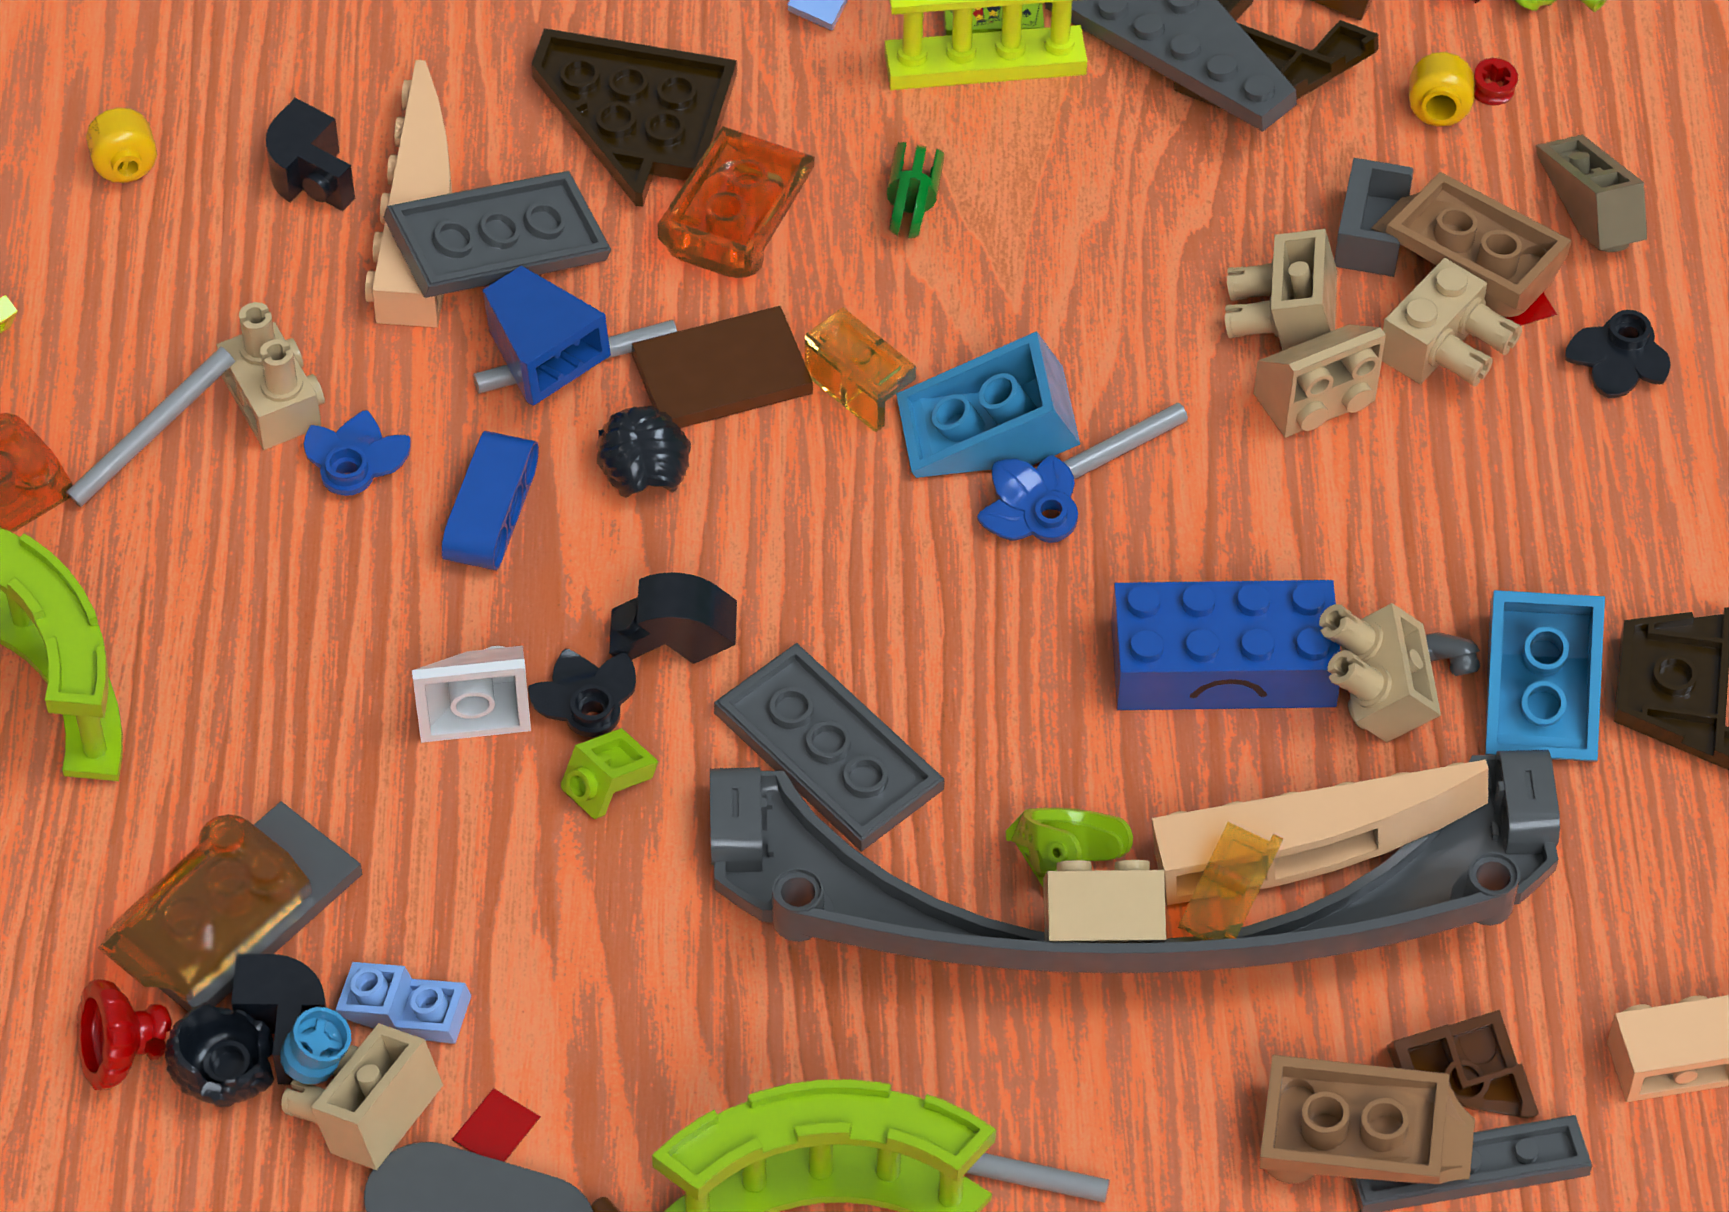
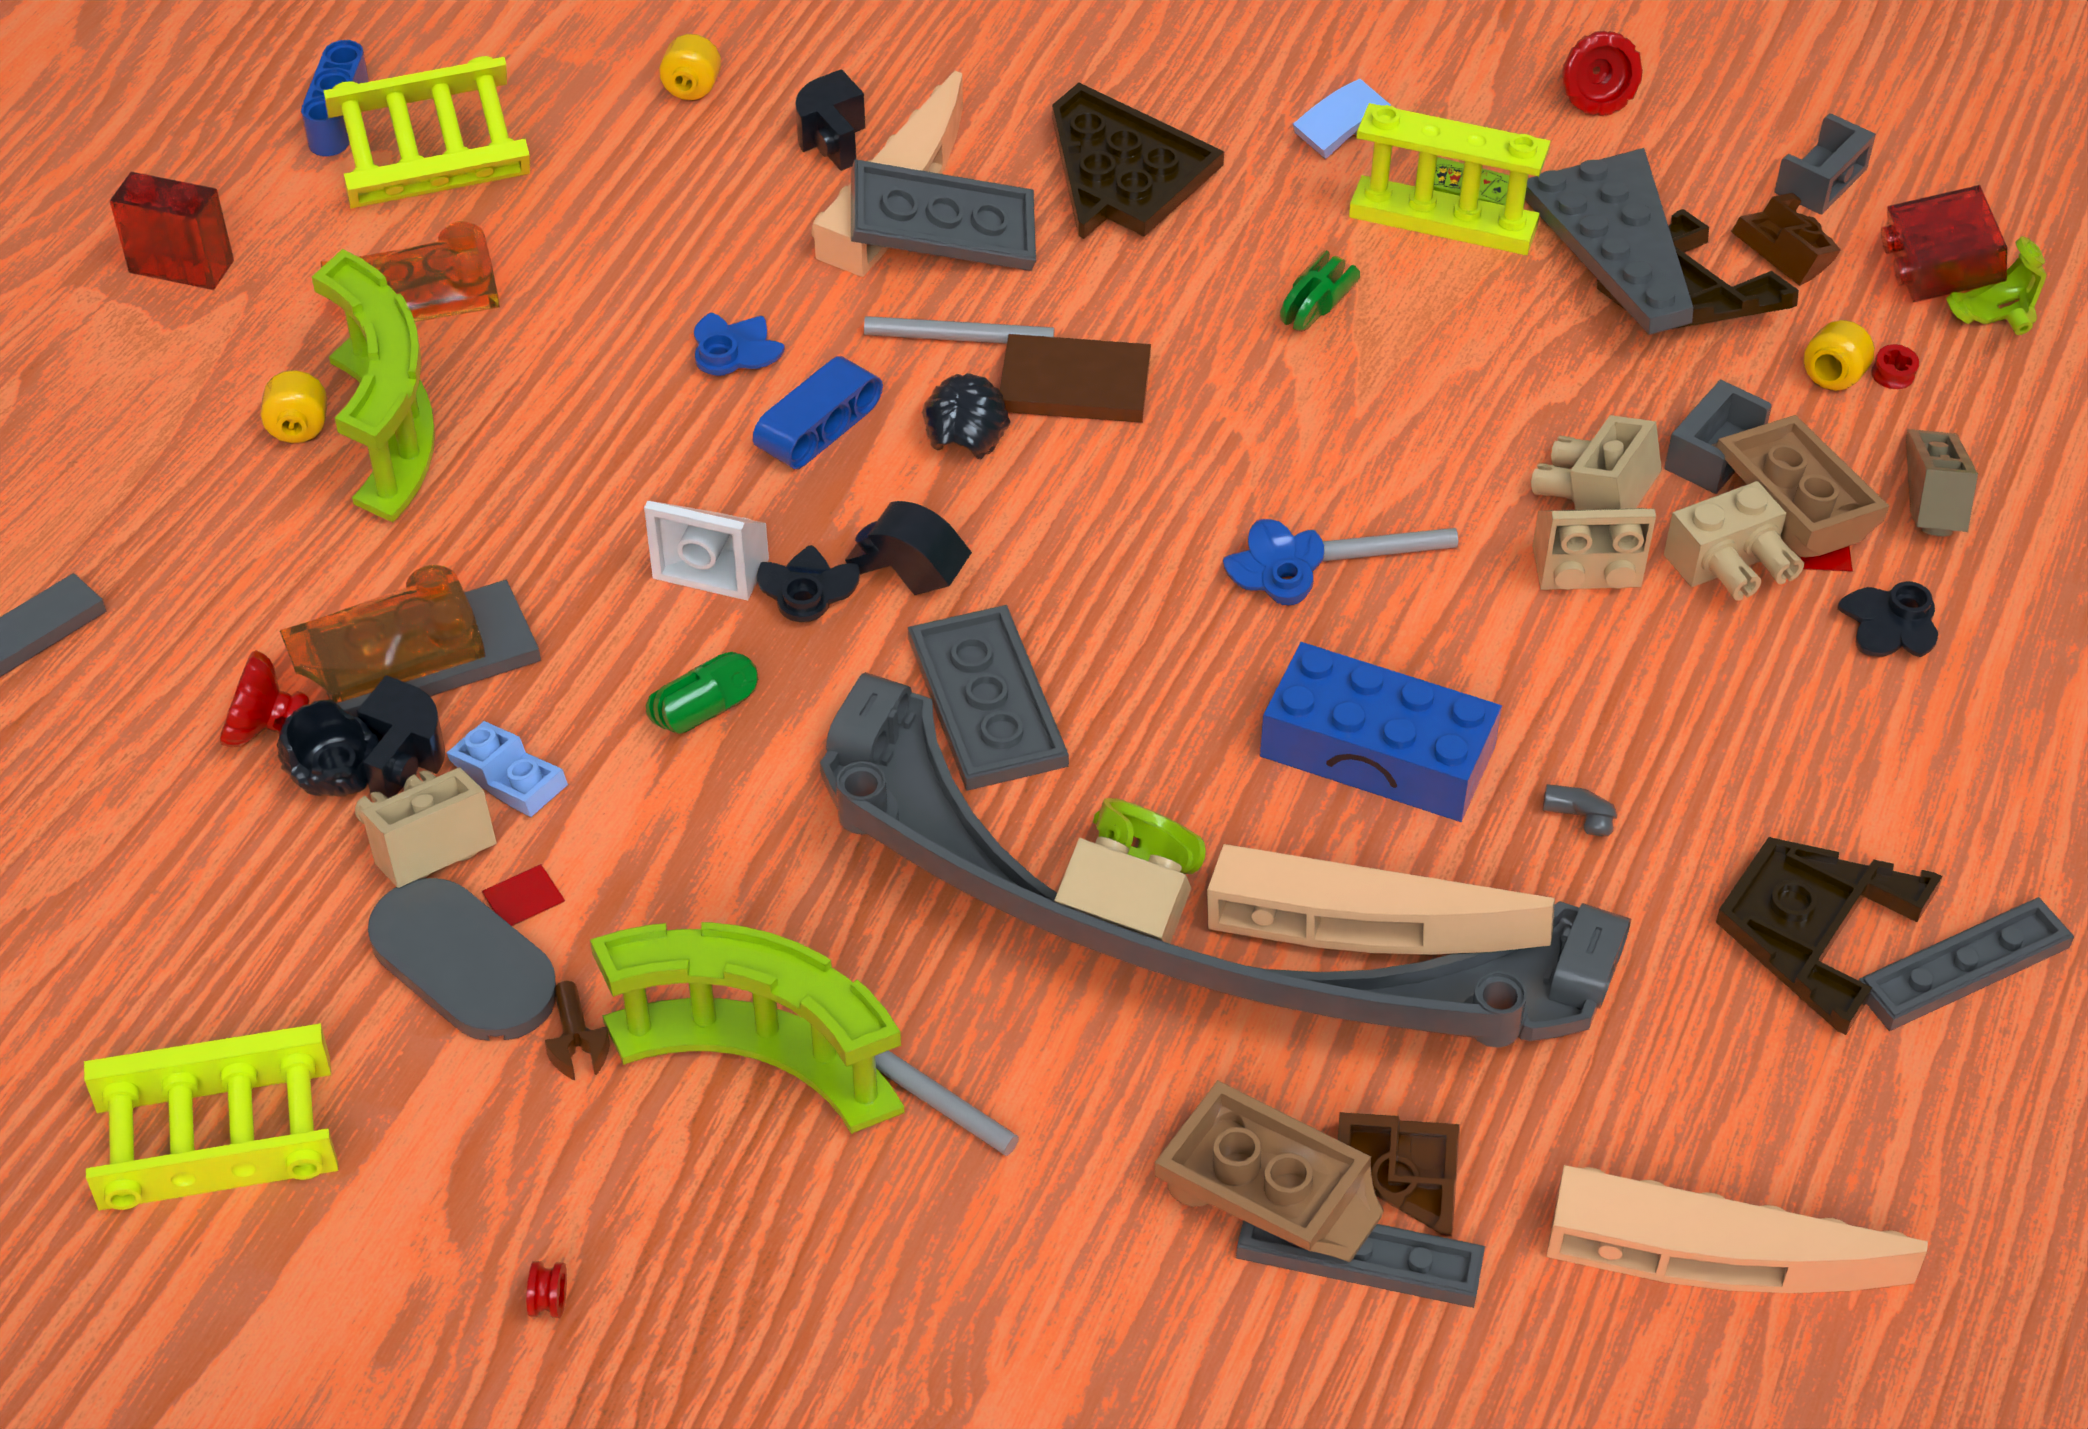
camera: 25 degrees right, 5 degrees down
(150, 426) = (579, 269): light grey bar -> none
(270, 379) = (696, 263): tan brick -> none
(325, 1036) = (393, 751): dark azure wheel -> none
(543, 332) = (934, 299): blue slope -> none
(555, 849) = (703, 692): none -> green arm
(605, 767) = (786, 643): lime bracket -> none
(733, 203) = (1154, 254): clear orange slope -> none
(856, 366) = (1182, 405): clear yellow panel -> none
(989, 411) = (1288, 476): dark azure slope -> none
(1229, 884) = (1259, 918): clear yellow panel -> none
(1383, 668) = (1513, 797): tan brick -> none
(1544, 674) = (1667, 854): dark azure slope -> none

